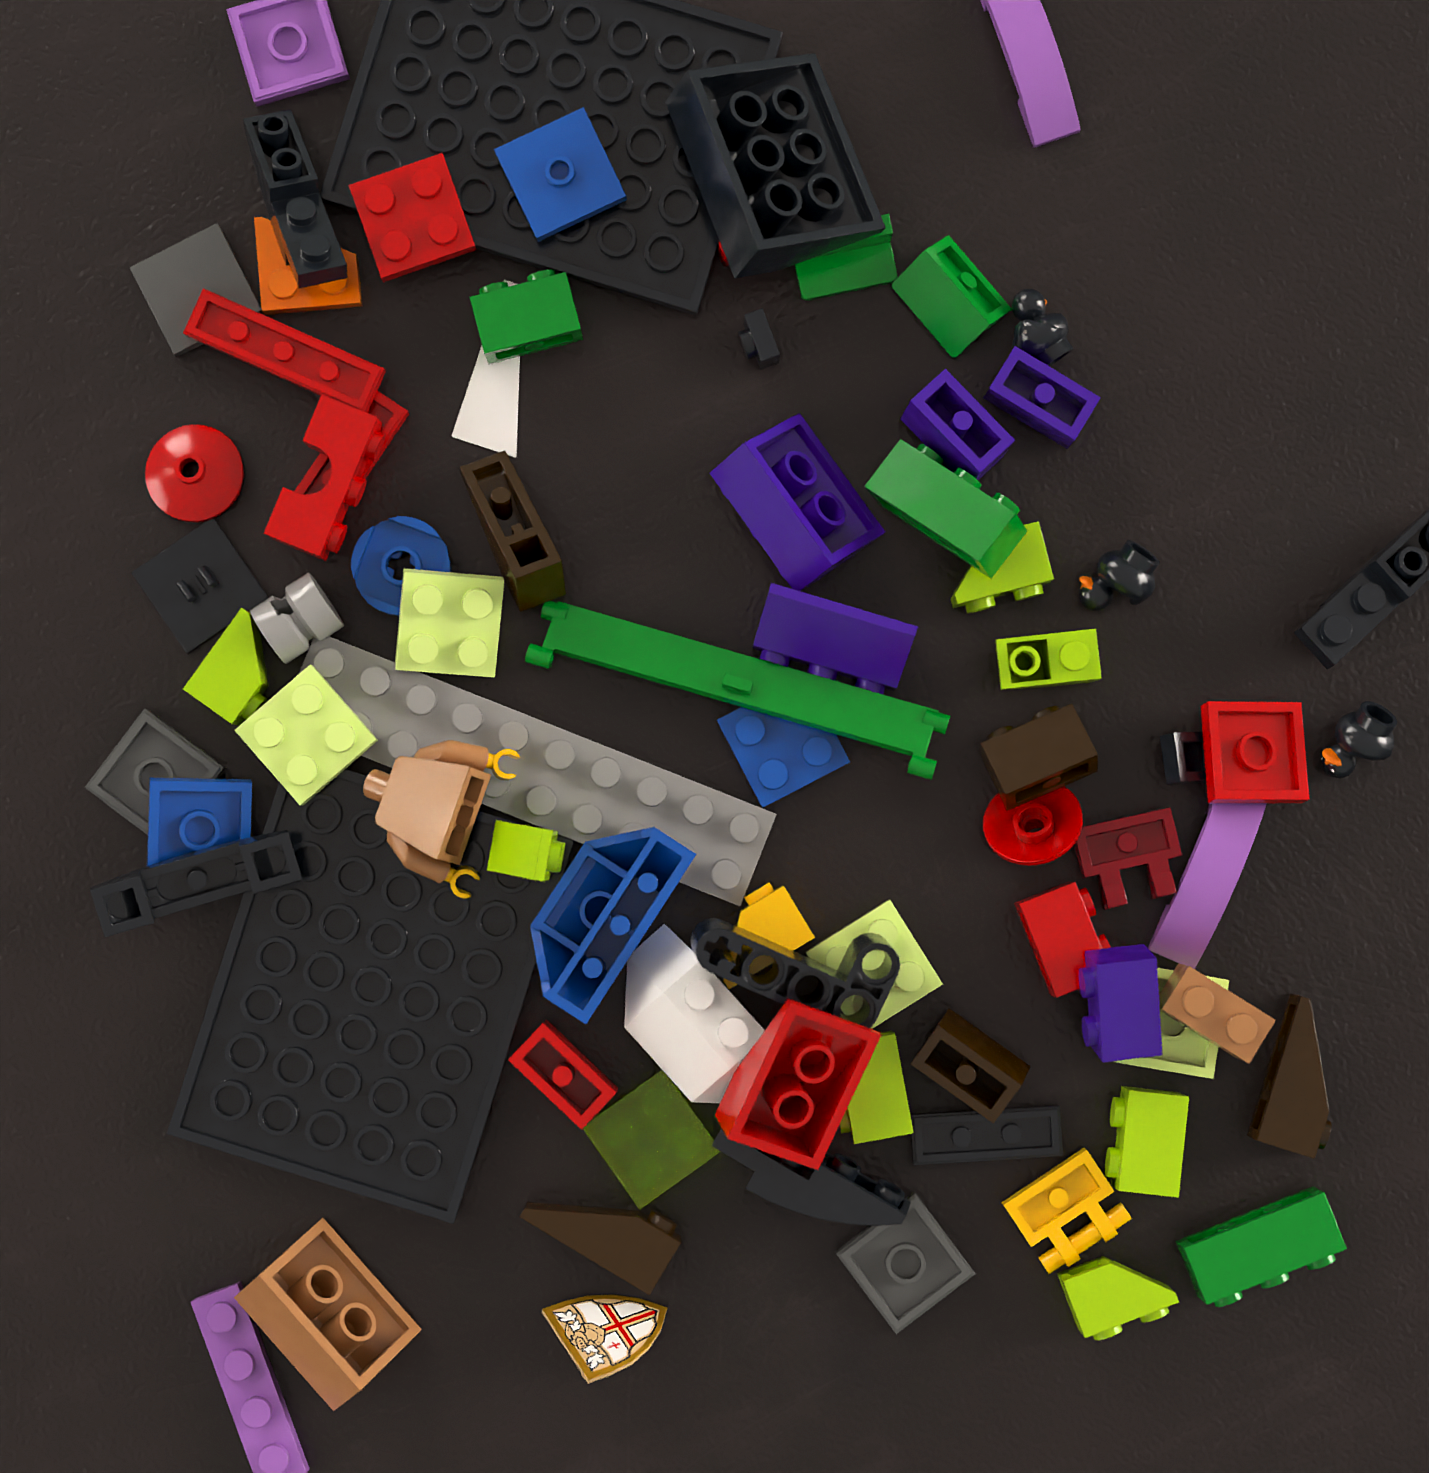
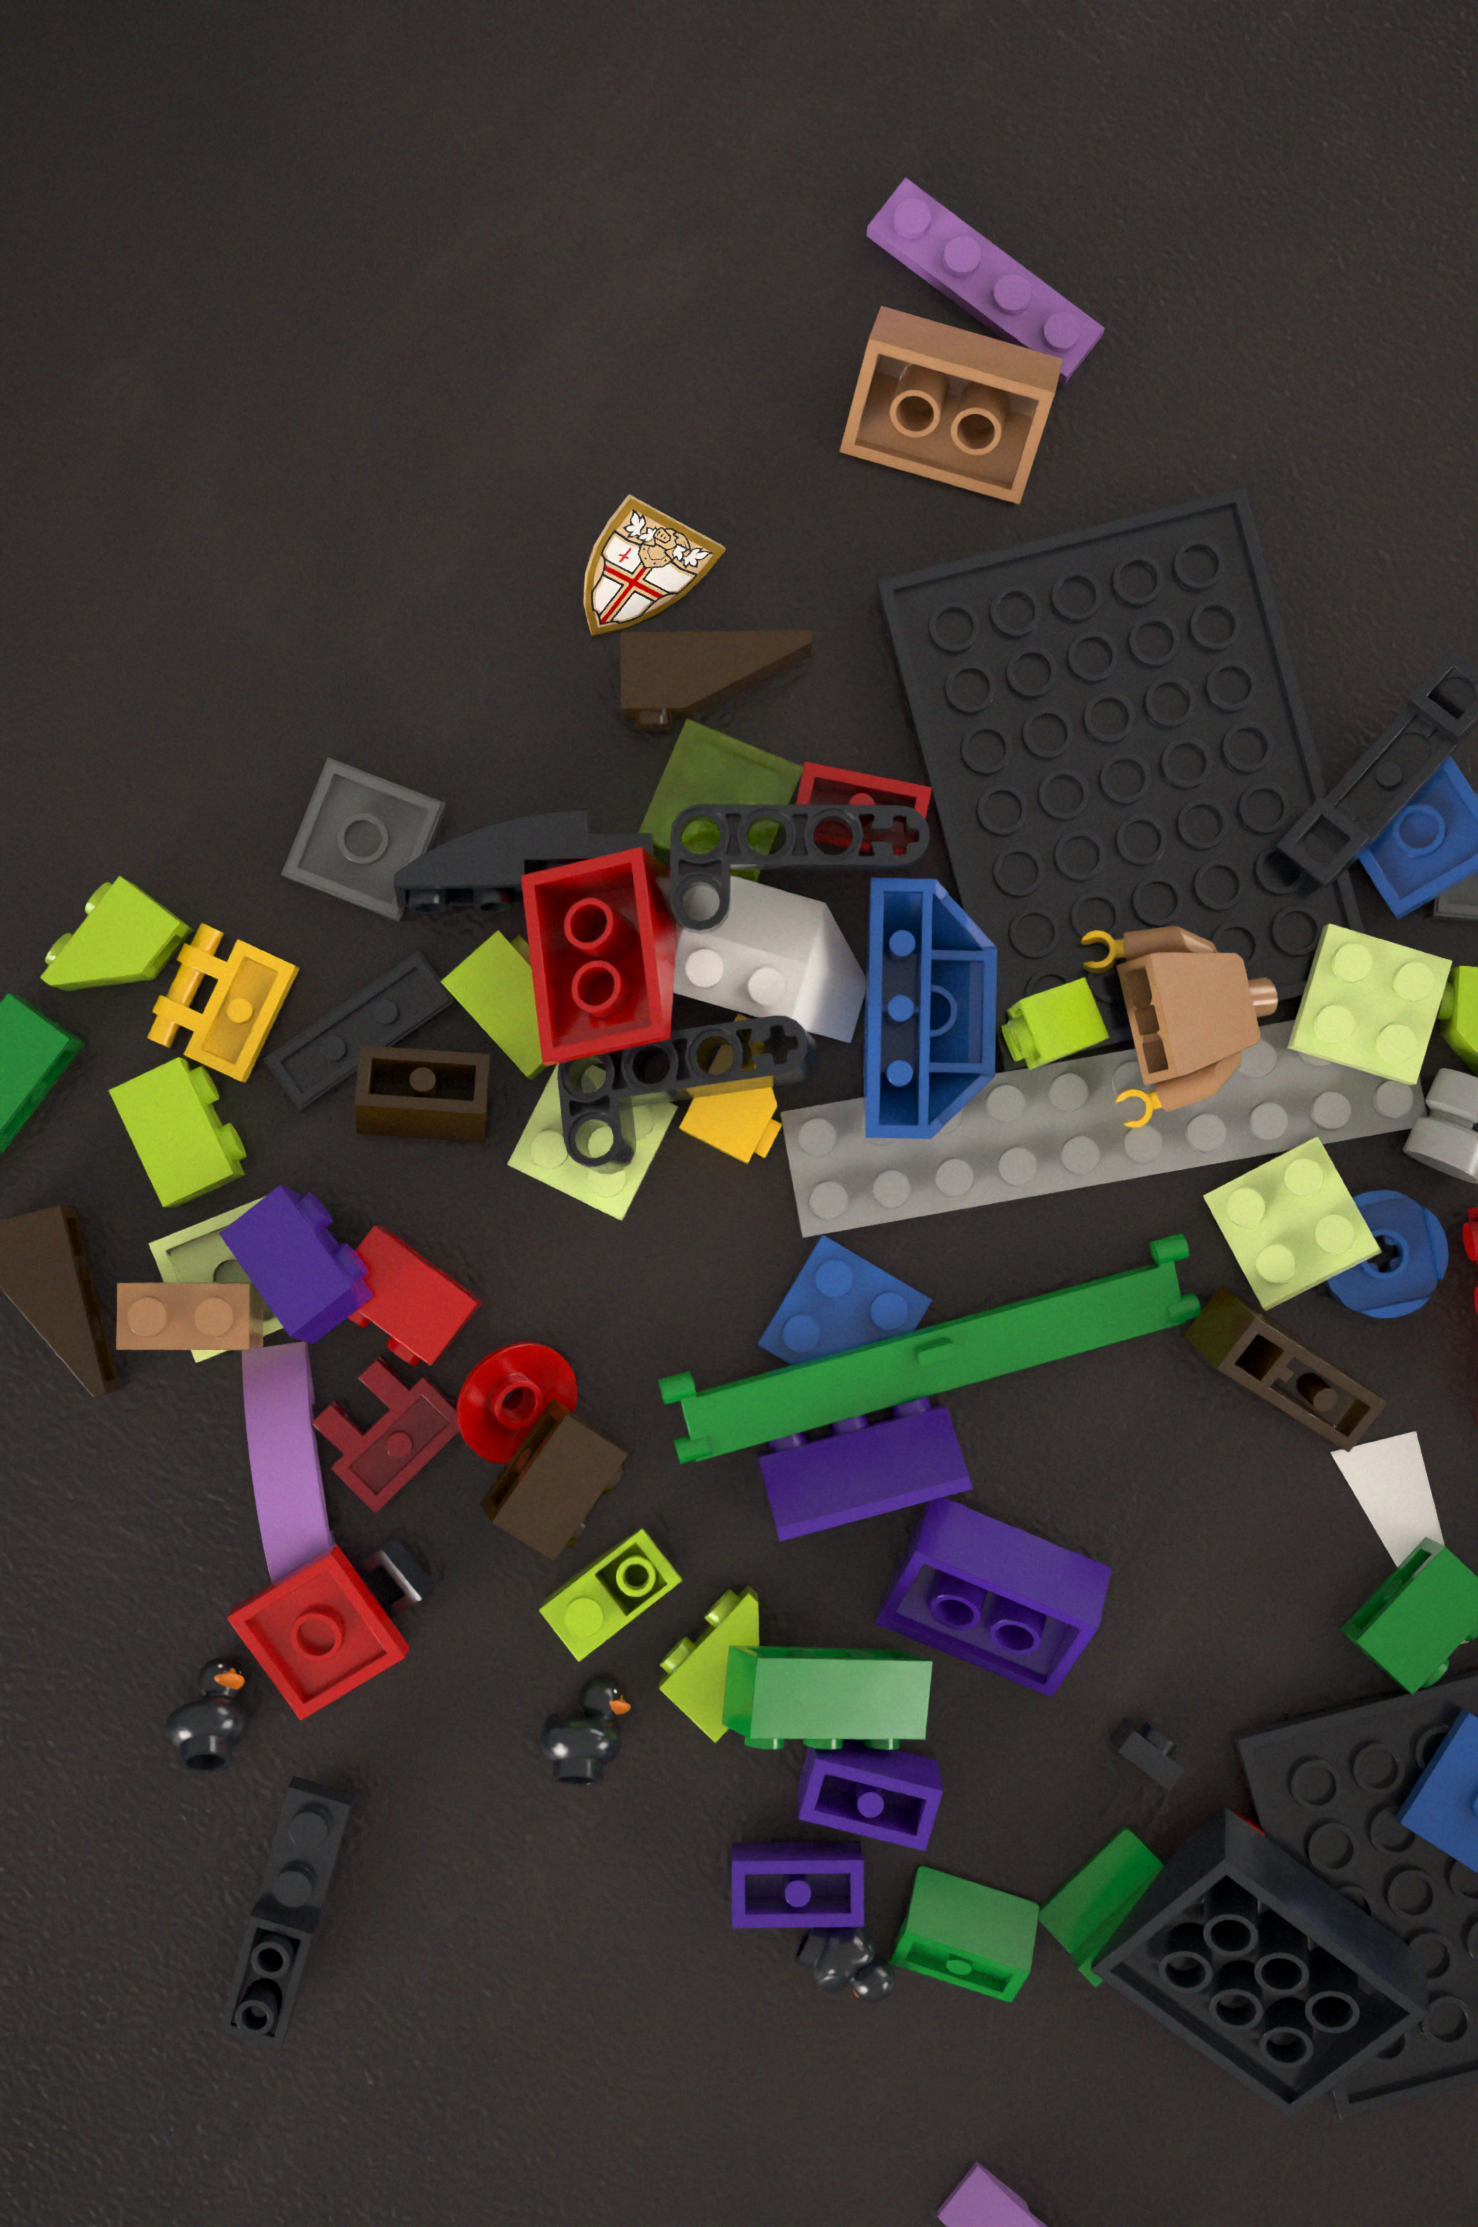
camera: 150 degrees right, 0 degrees up
(625, 1071) = (797, 853): none -> black beam

